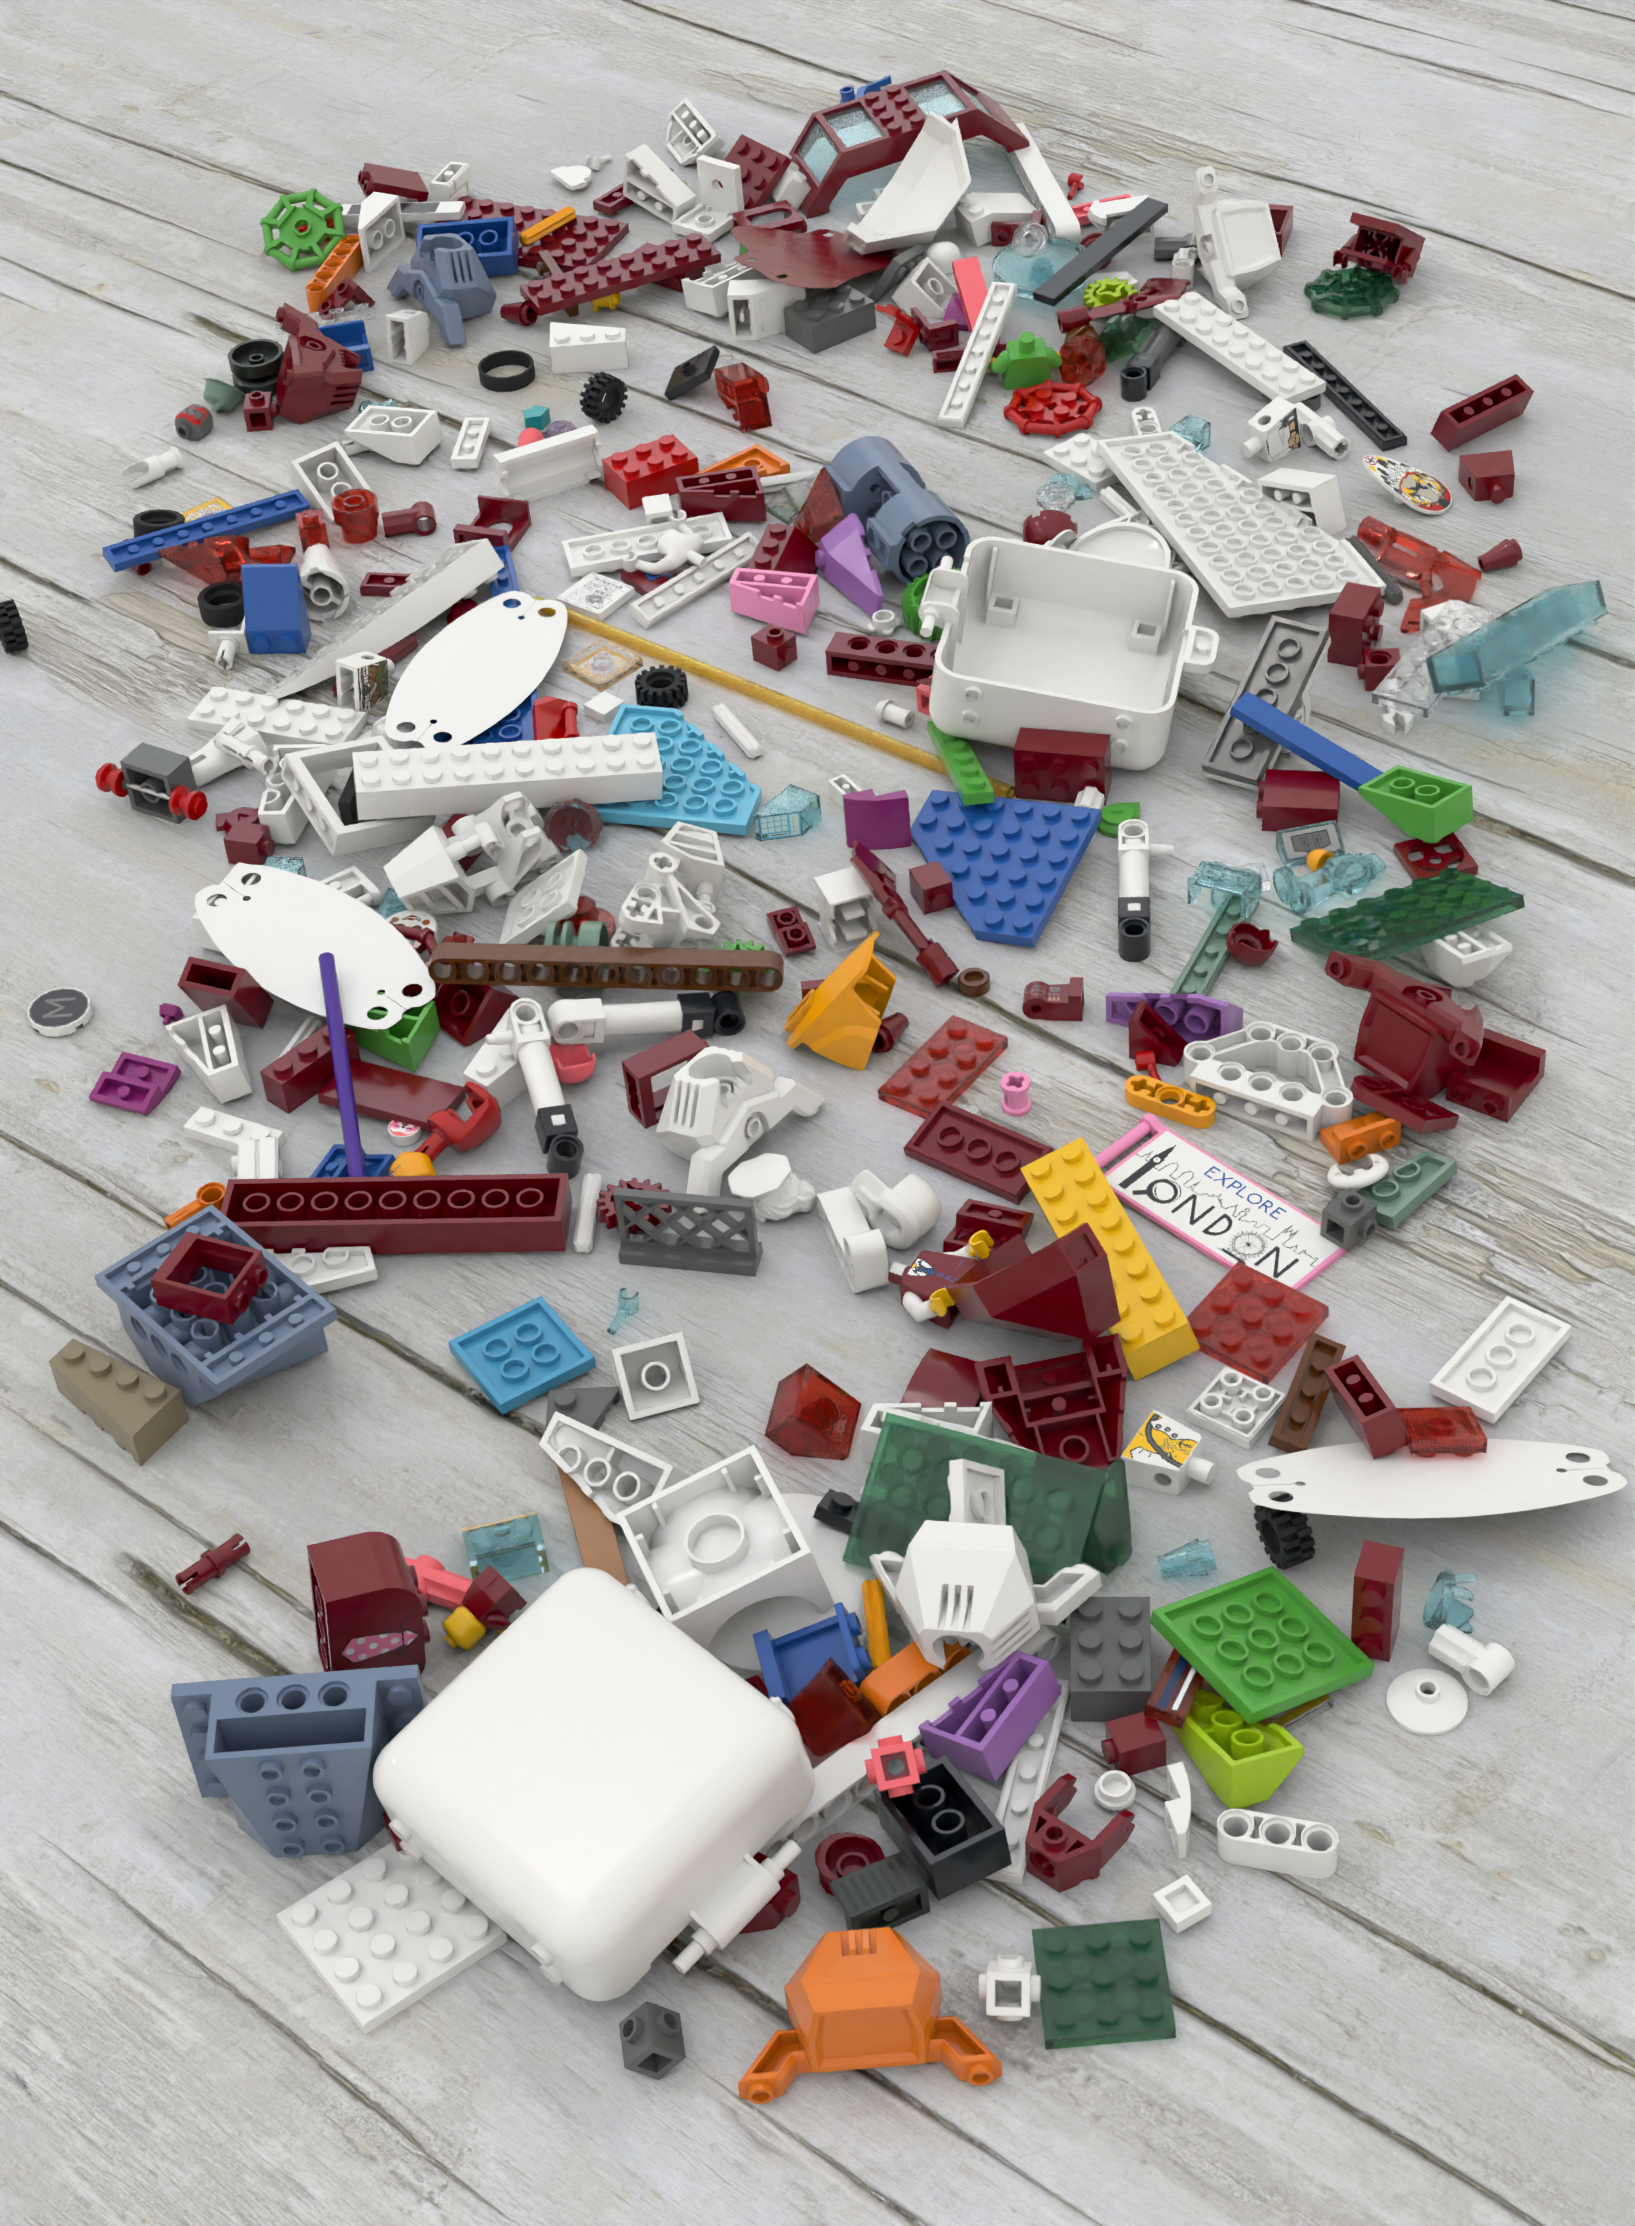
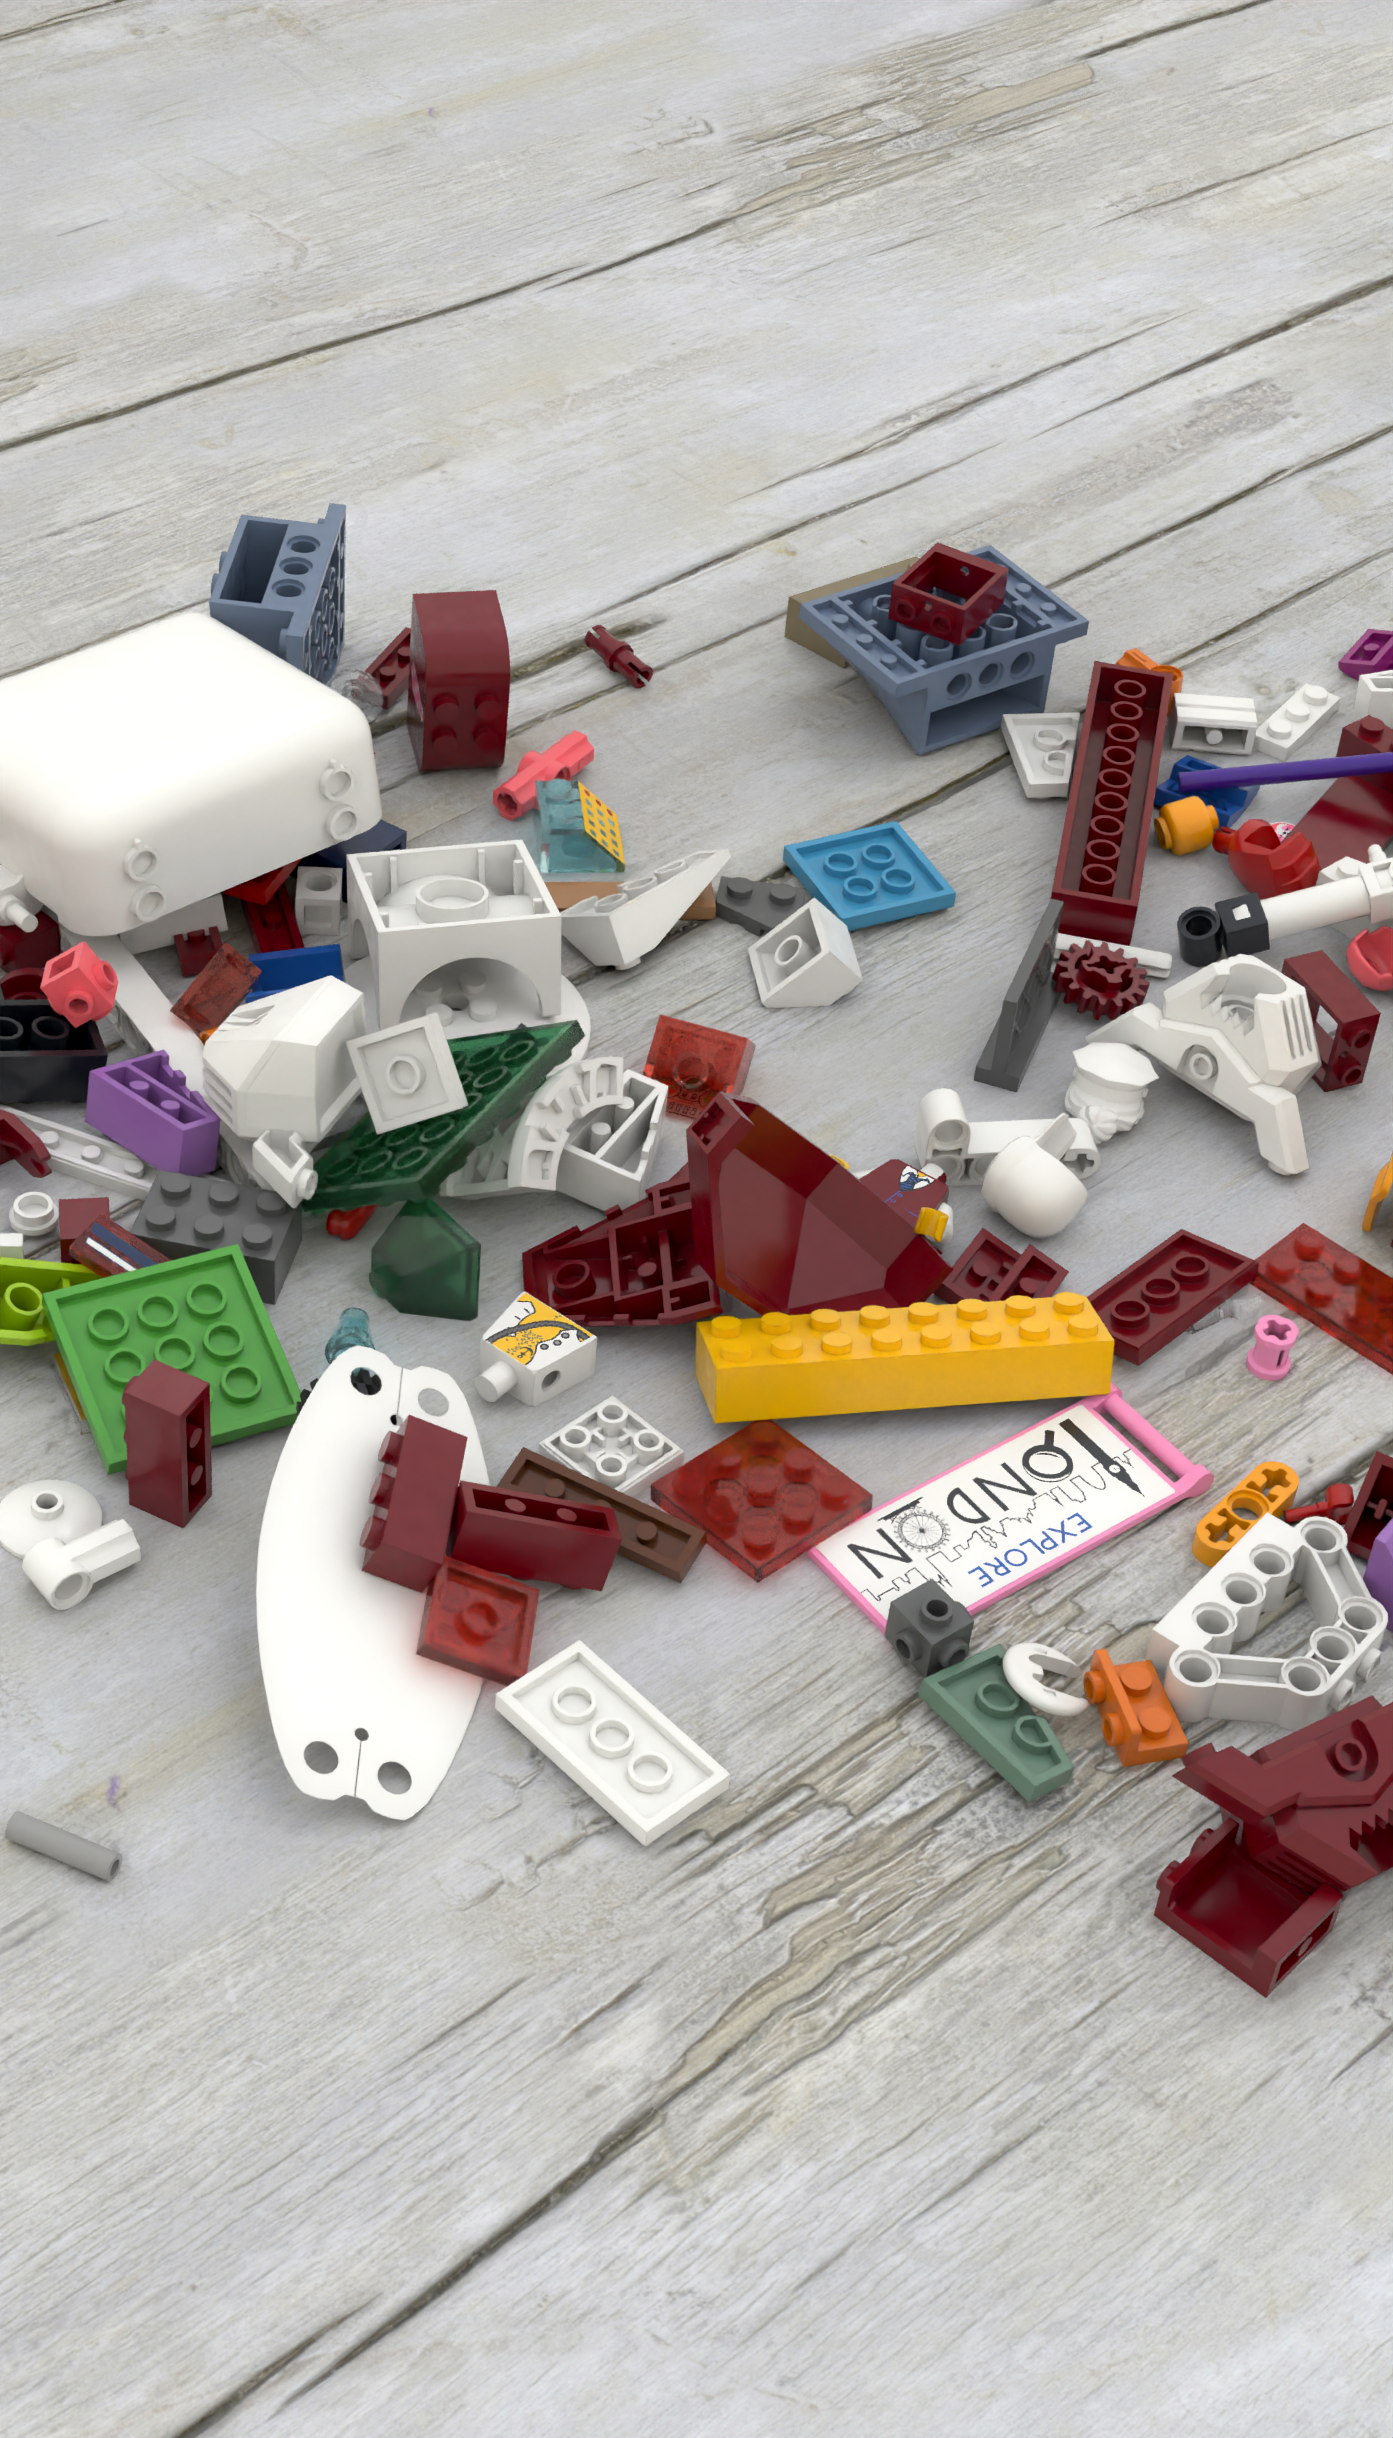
camera: 90 degrees right, 0 degrees up
(487, 1605) = (477, 801): dark red piece -> none
(626, 1307) = (938, 966): clear light blue hand -> none
(1379, 1454) = (413, 1503): none -> dark red brick
(1411, 1111) = (1150, 1749): dark red tile -> none
(1443, 1608) = (171, 1567): clear light blue piece -> none

